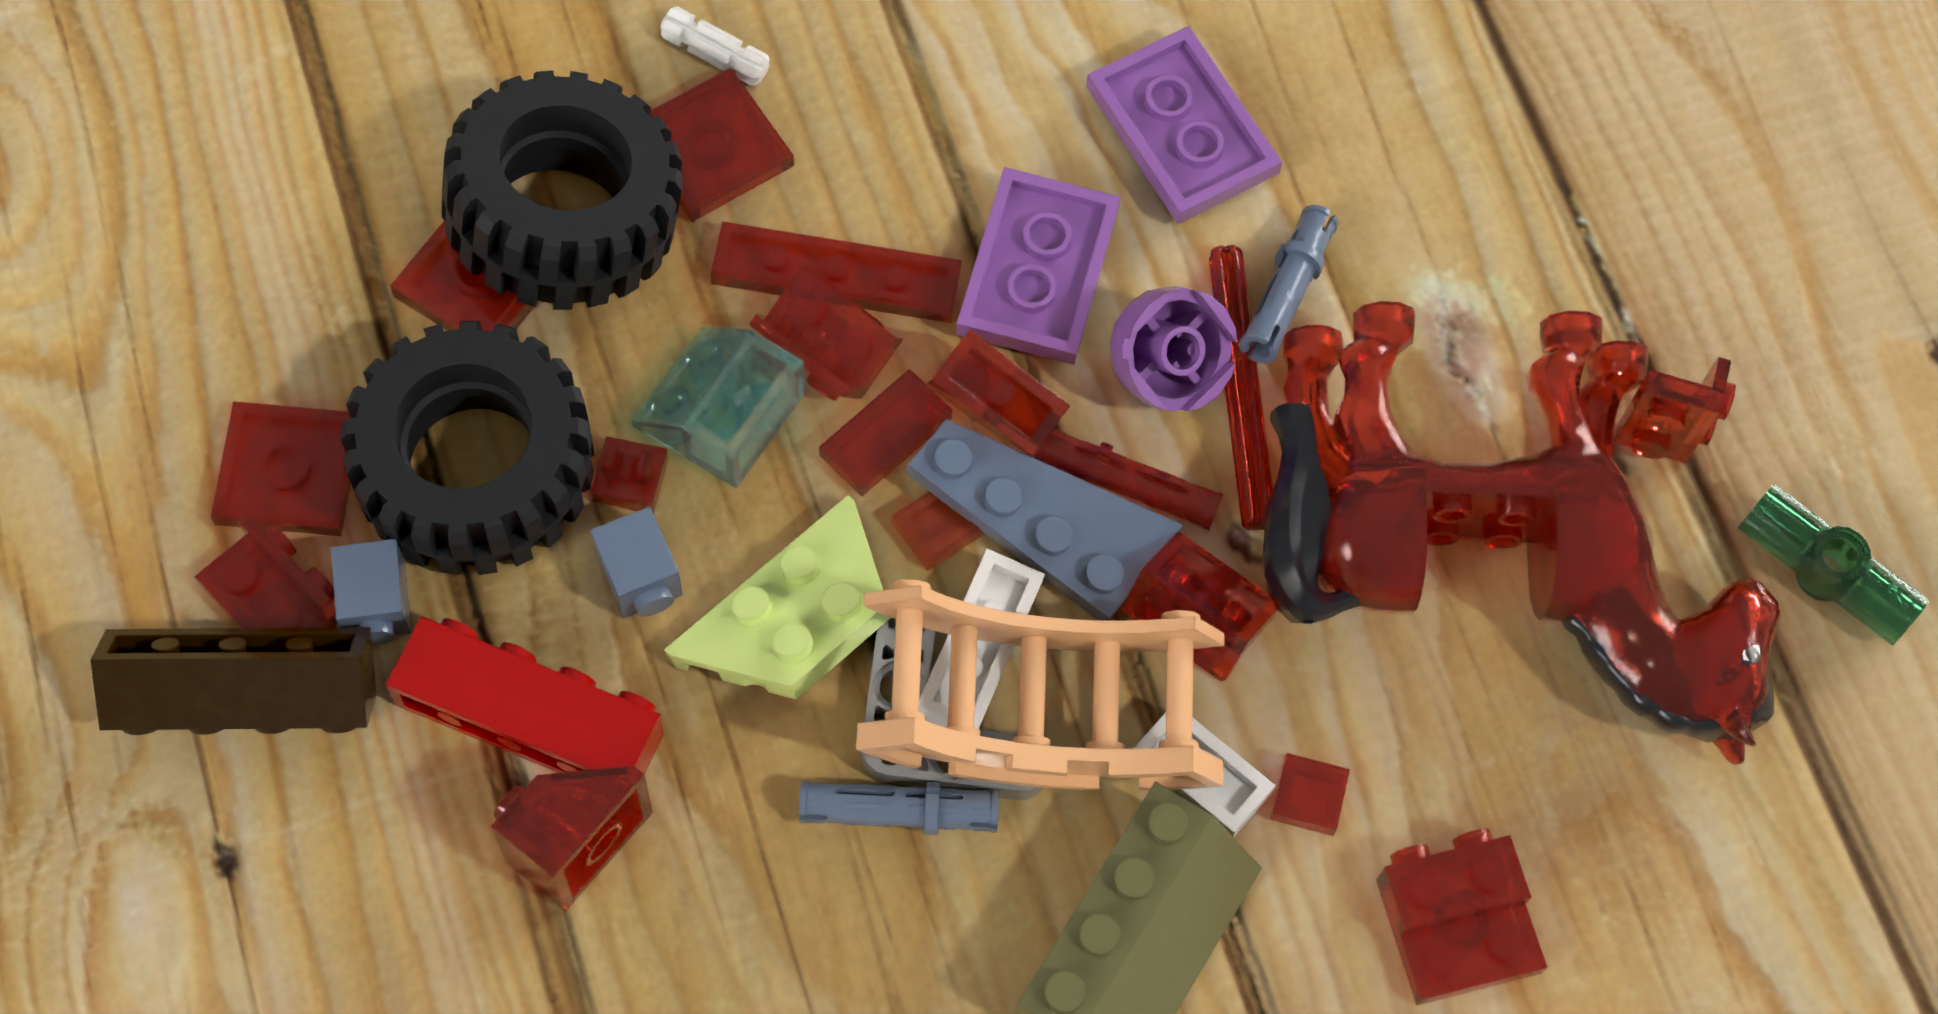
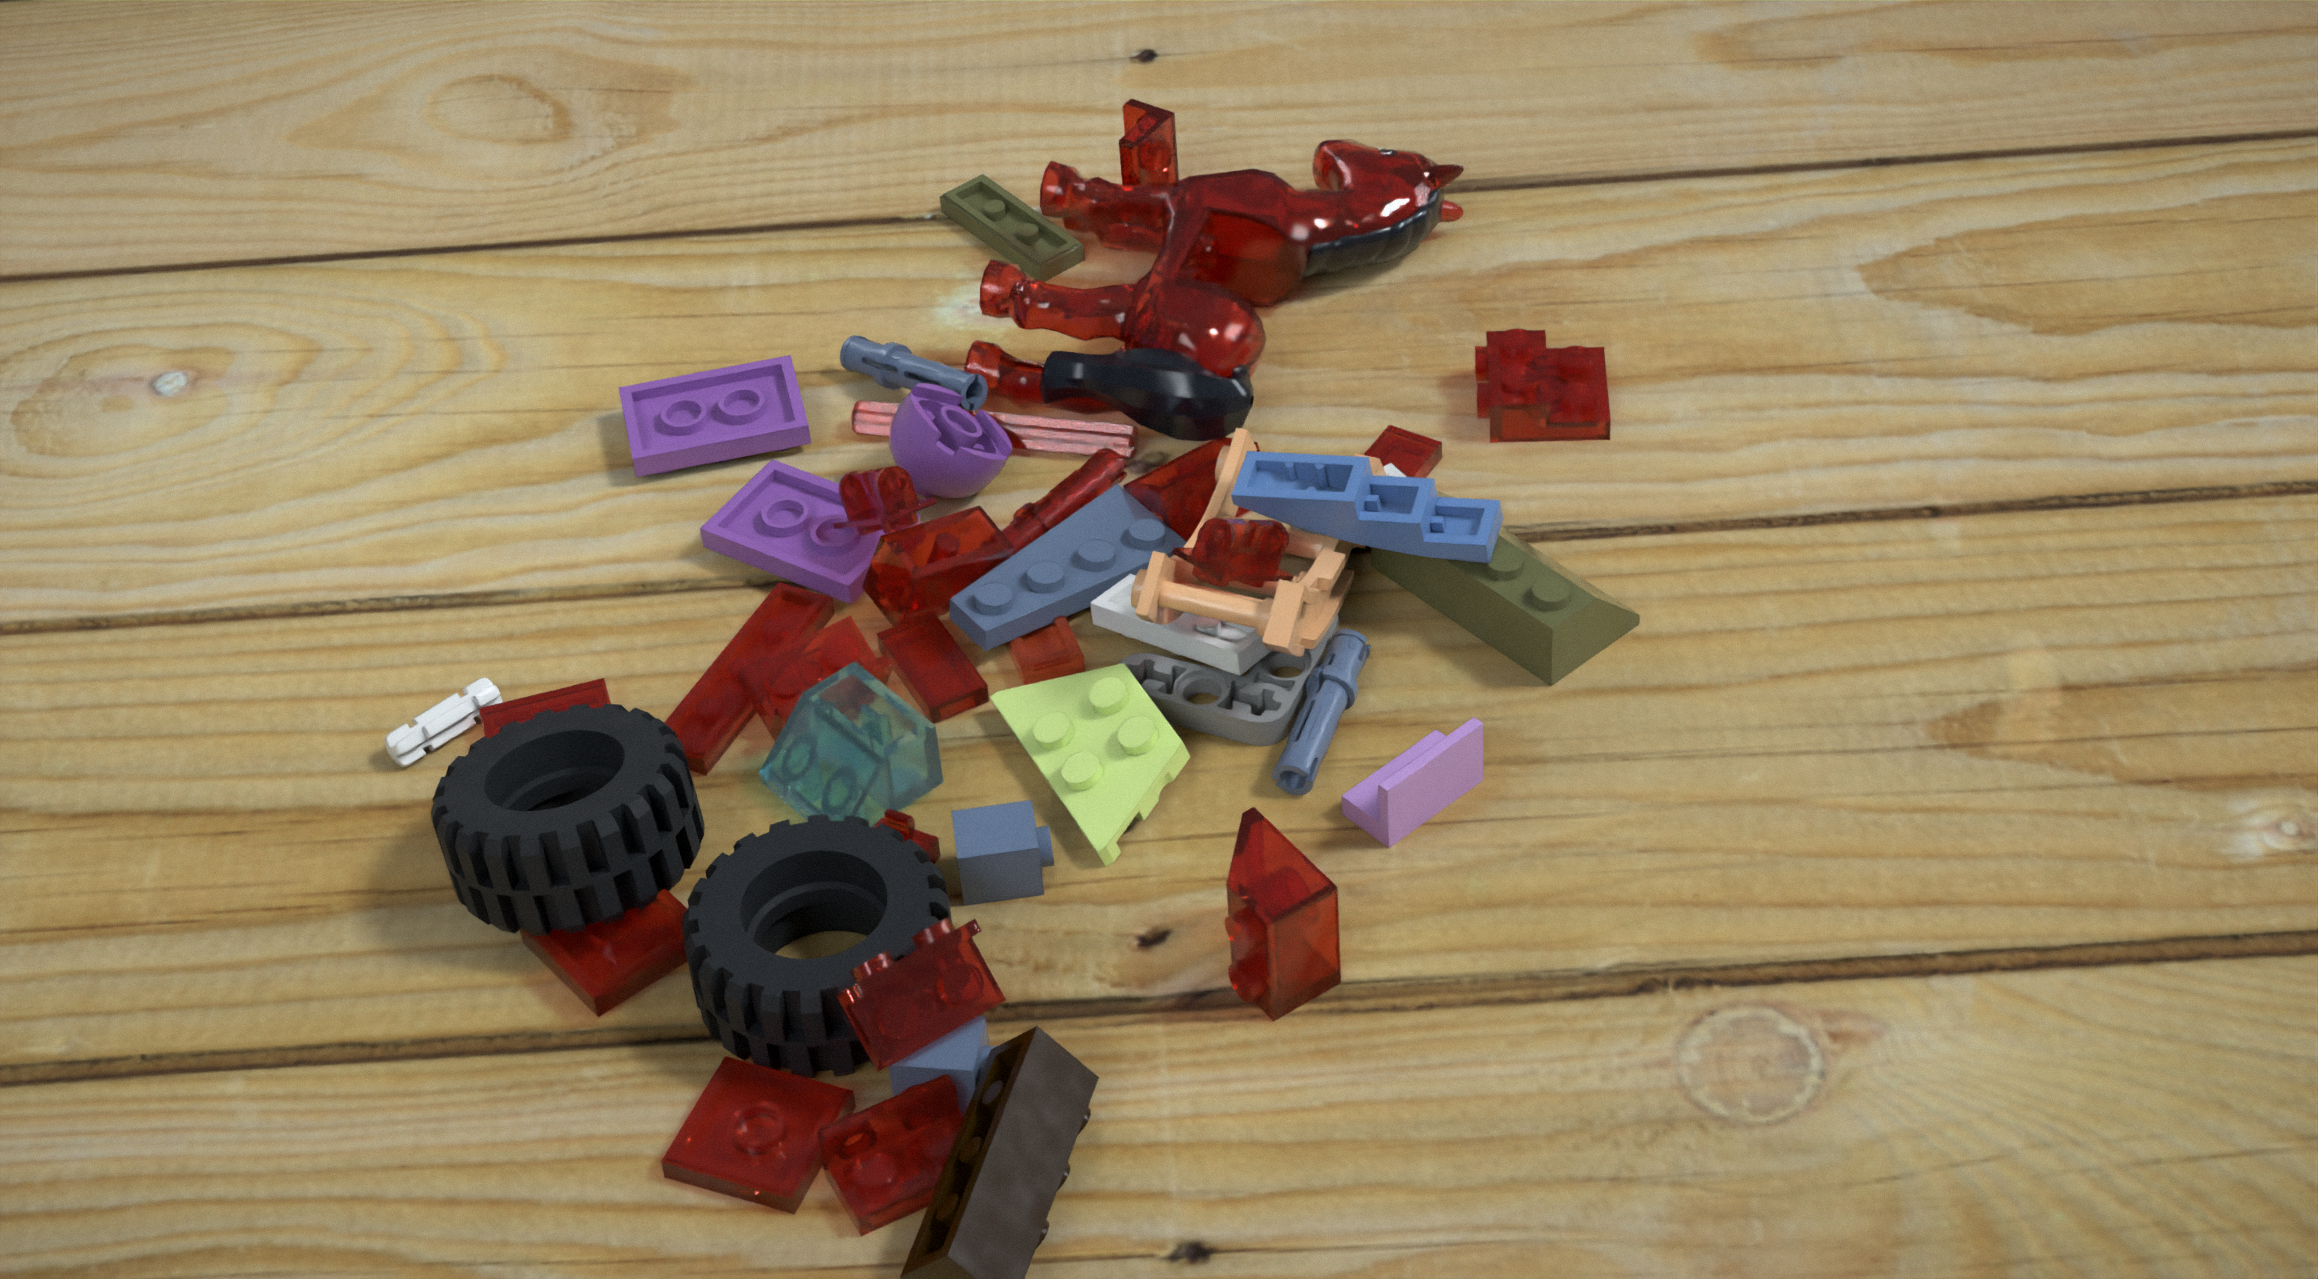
camera: 65 degrees left, 25 degrees down
(377, 548) = (921, 996): none -> clear red bracket
(521, 704) = (1123, 953): red brick -> none
(822, 917) = (1417, 783): none -> lavender panel
(998, 669) = (1238, 552): none -> clear red hinge
(1031, 316) = (880, 500): none -> clear red hinge
(1115, 778) = (1351, 504): none -> medium blue slope
(1590, 283) = (1012, 228): none -> olive tile
(1864, 586) = (1306, 124): clear green piece -> none

